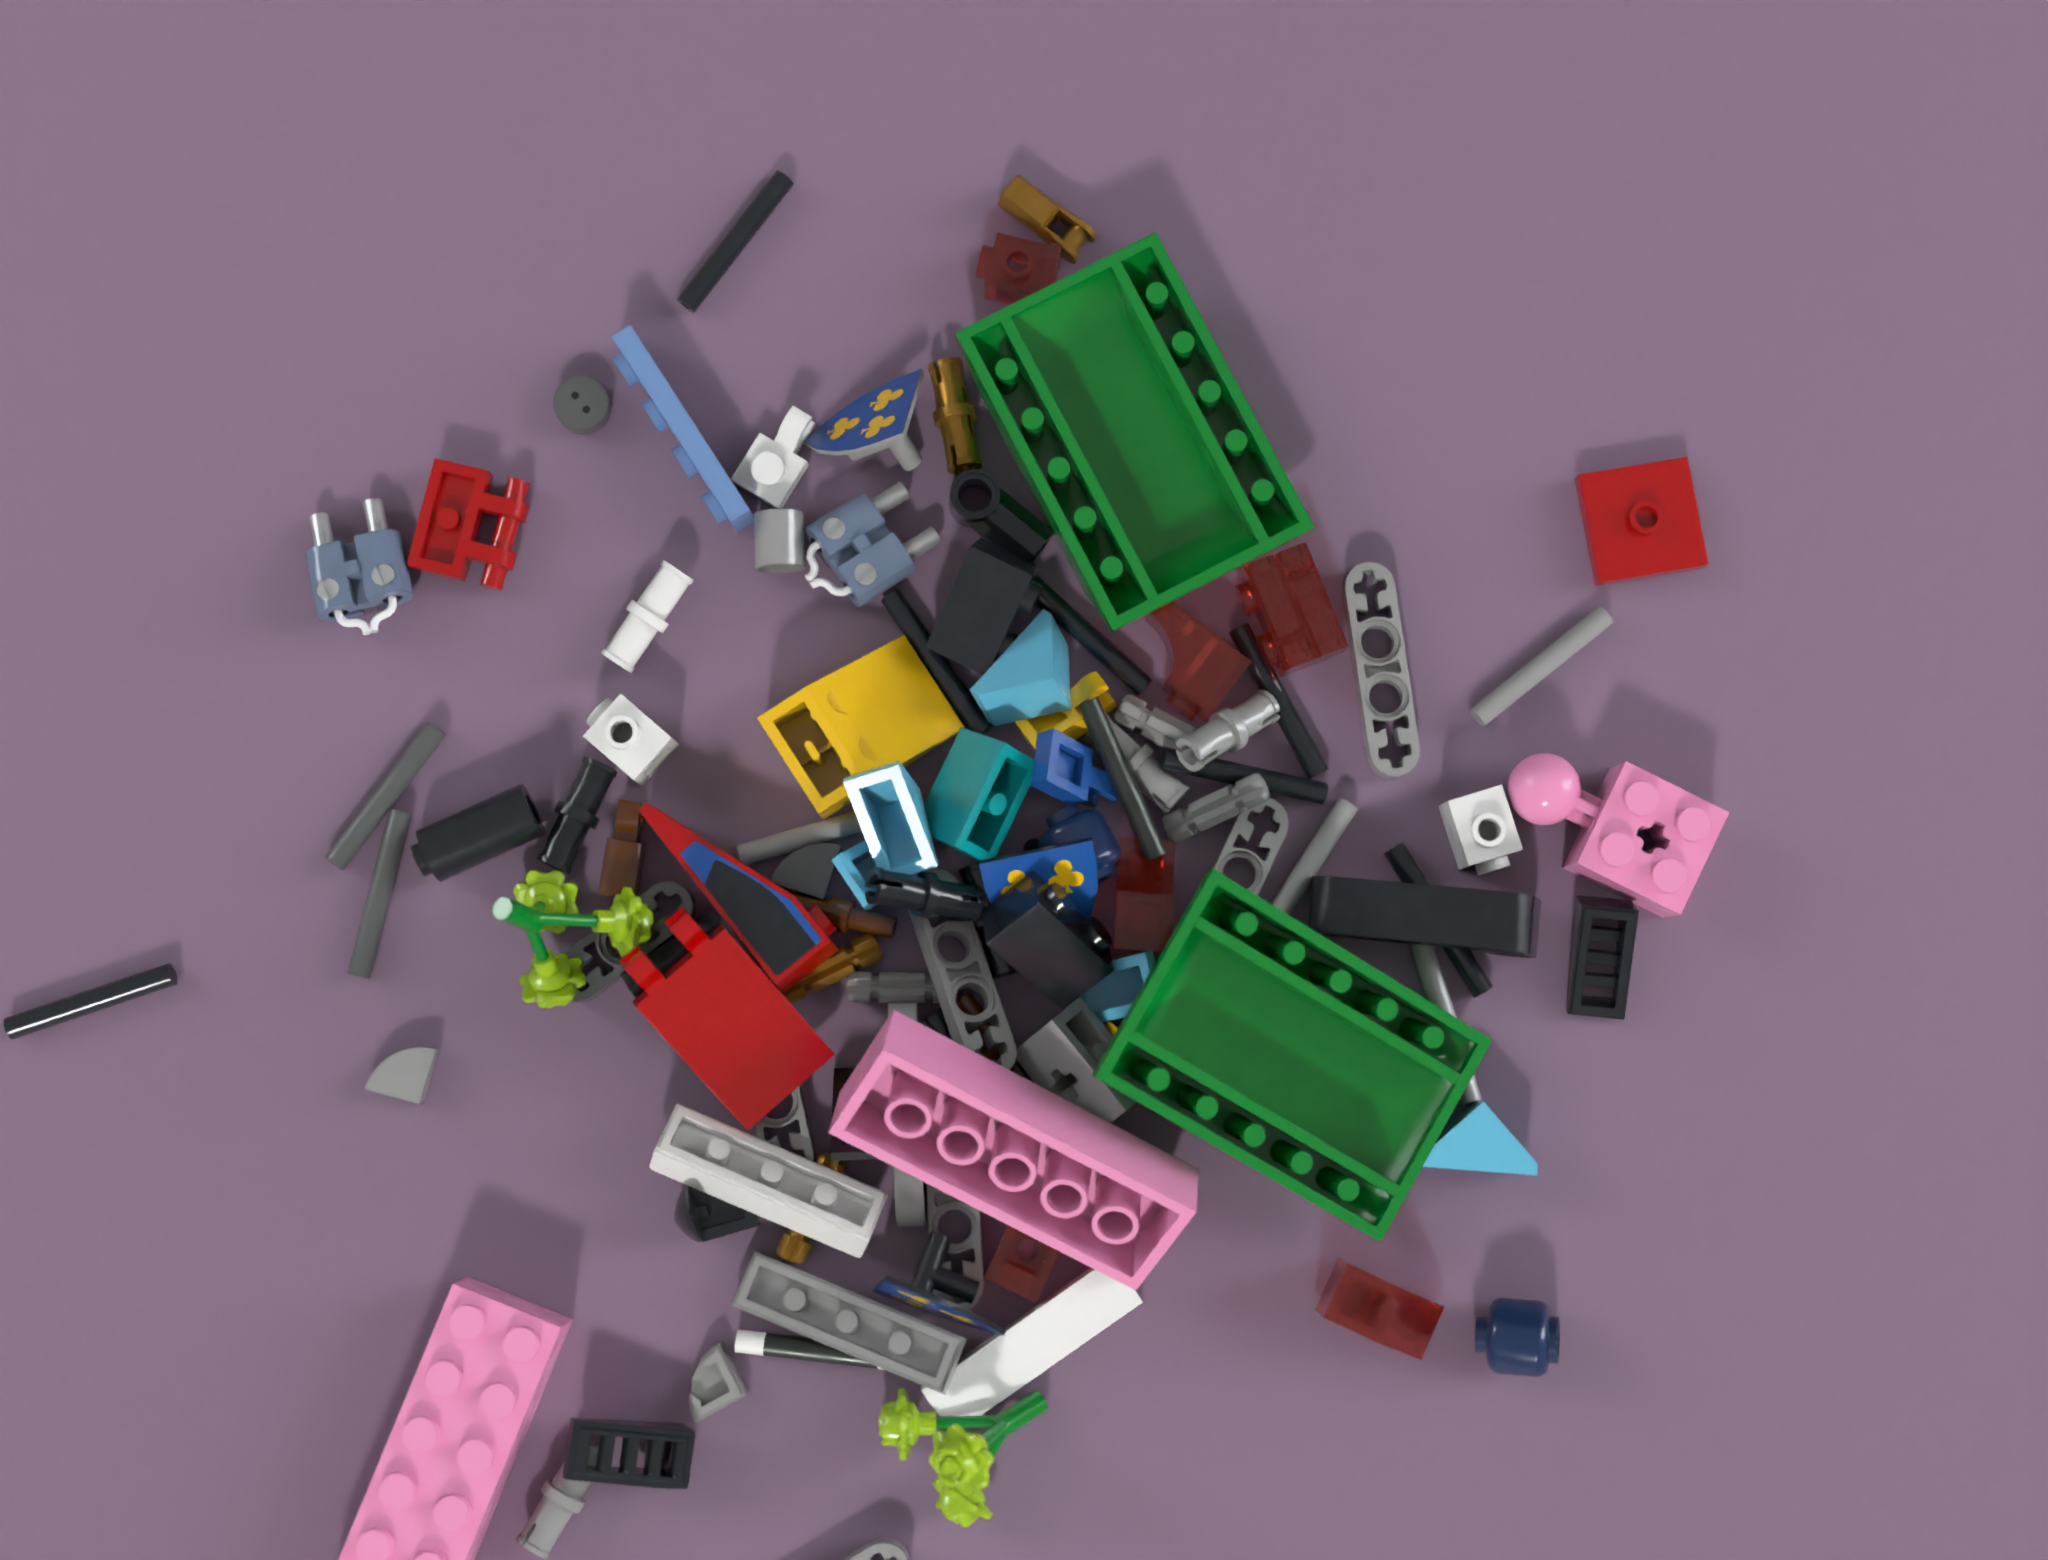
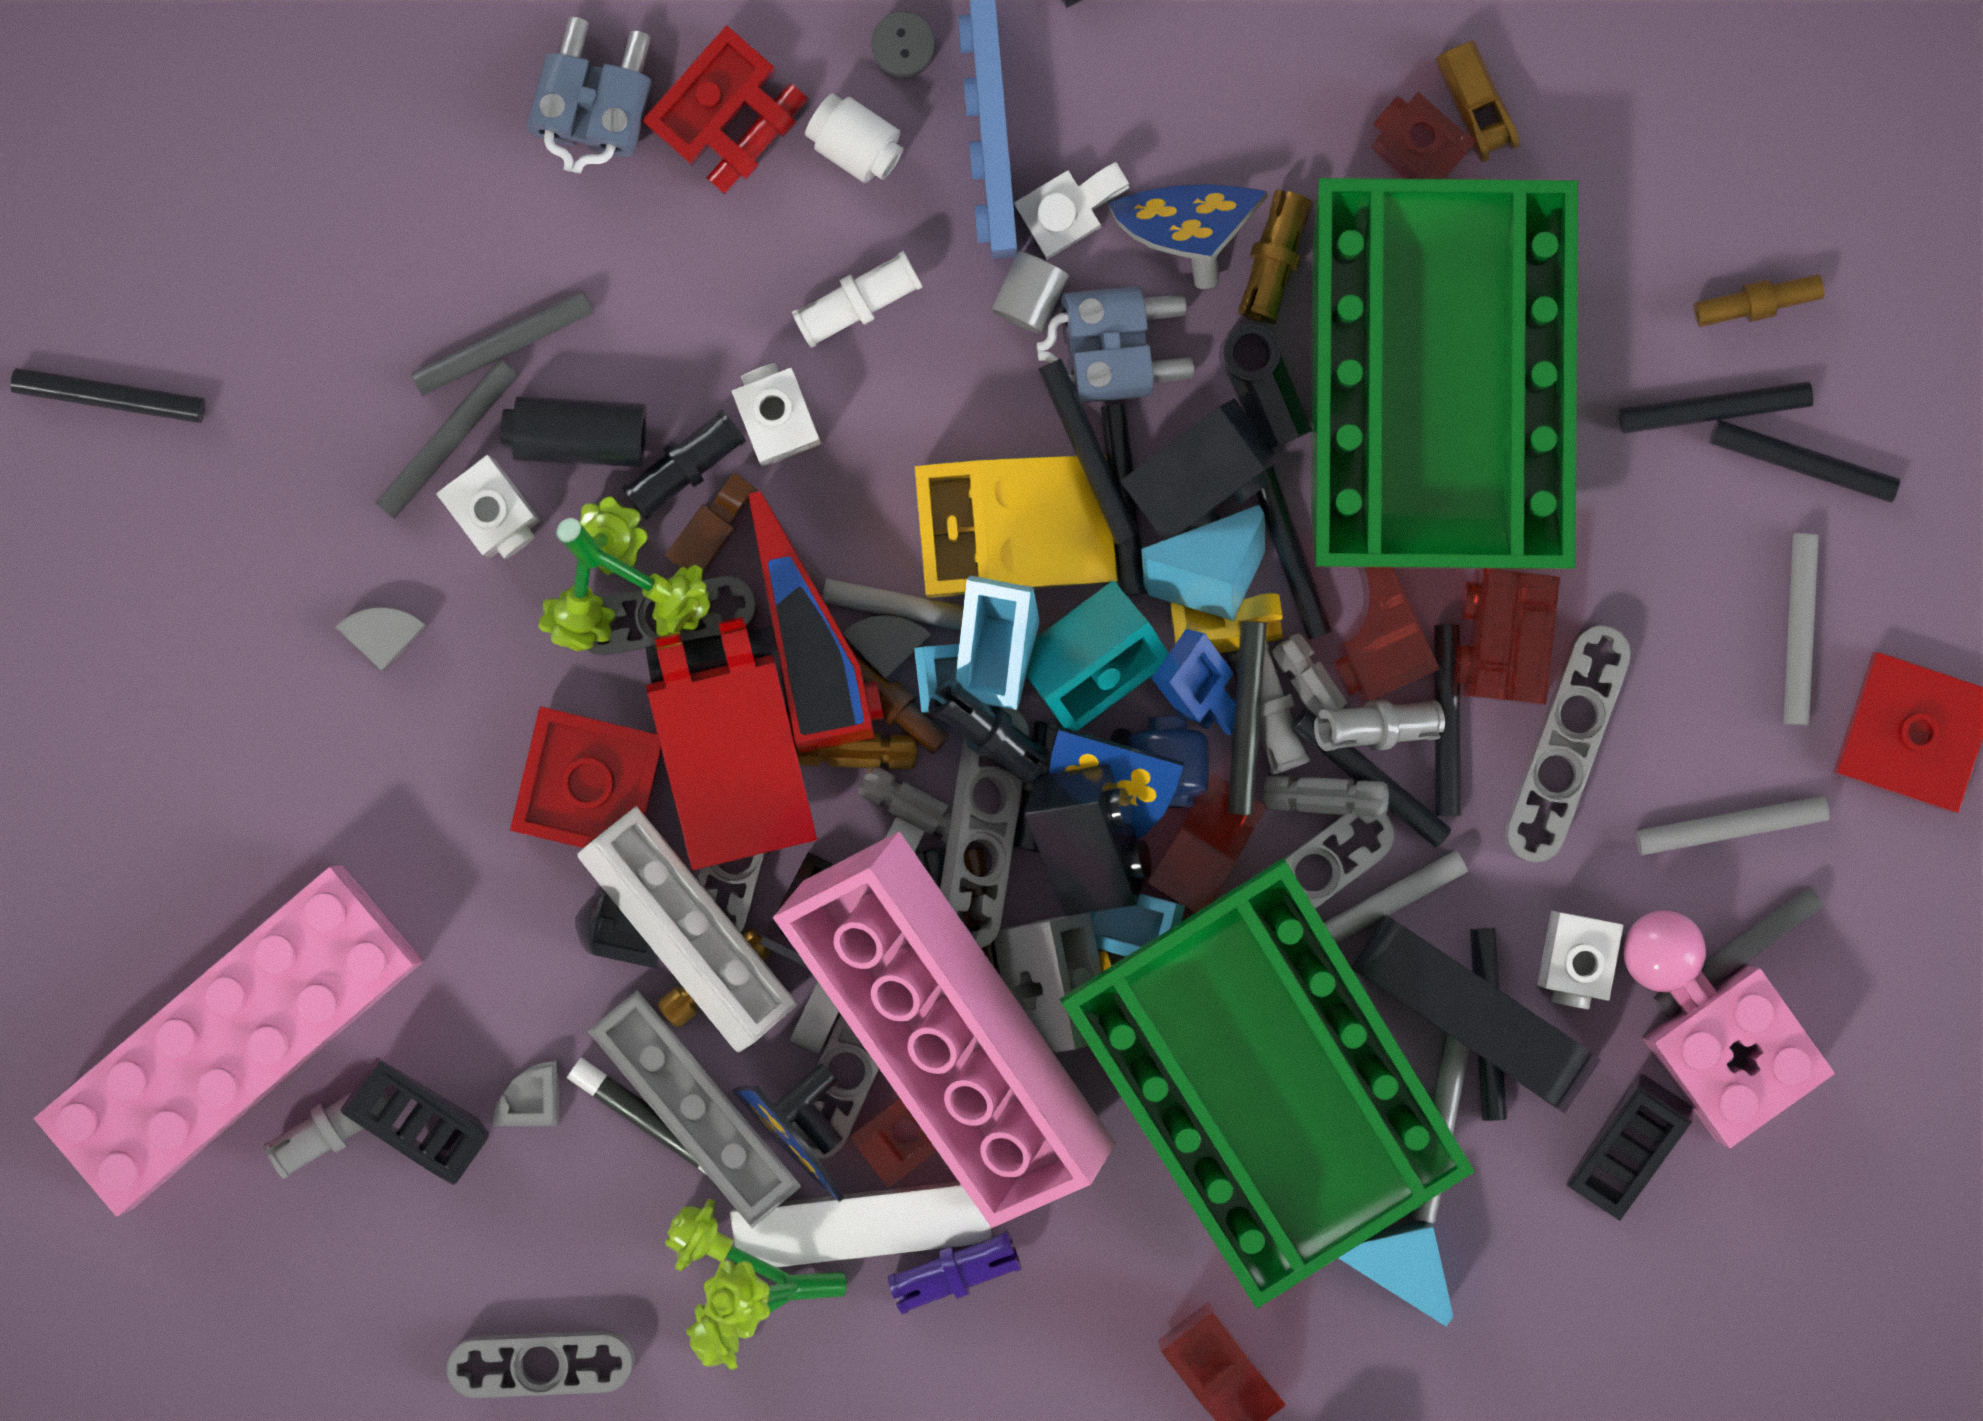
camera: 35 degrees right, 5 degrees up
(440, 930) = (490, 509): none -> white brick
(580, 493) = (854, 138): none -> white brick
(623, 1103) = (583, 777): none -> red plate
(888, 637) = (1088, 451): none -> black bar
(1125, 1342) = (954, 1272): none -> dark purple pin
(1342, 257) = (1759, 300): none -> pearl gold bar
(1353, 355) = (1716, 407): none -> black bar
(1443, 360) = (1804, 461): none -> black bar
(1510, 489) = (1800, 629): none -> light grey bar
(1605, 749) = (1751, 943): none -> dark grey bar

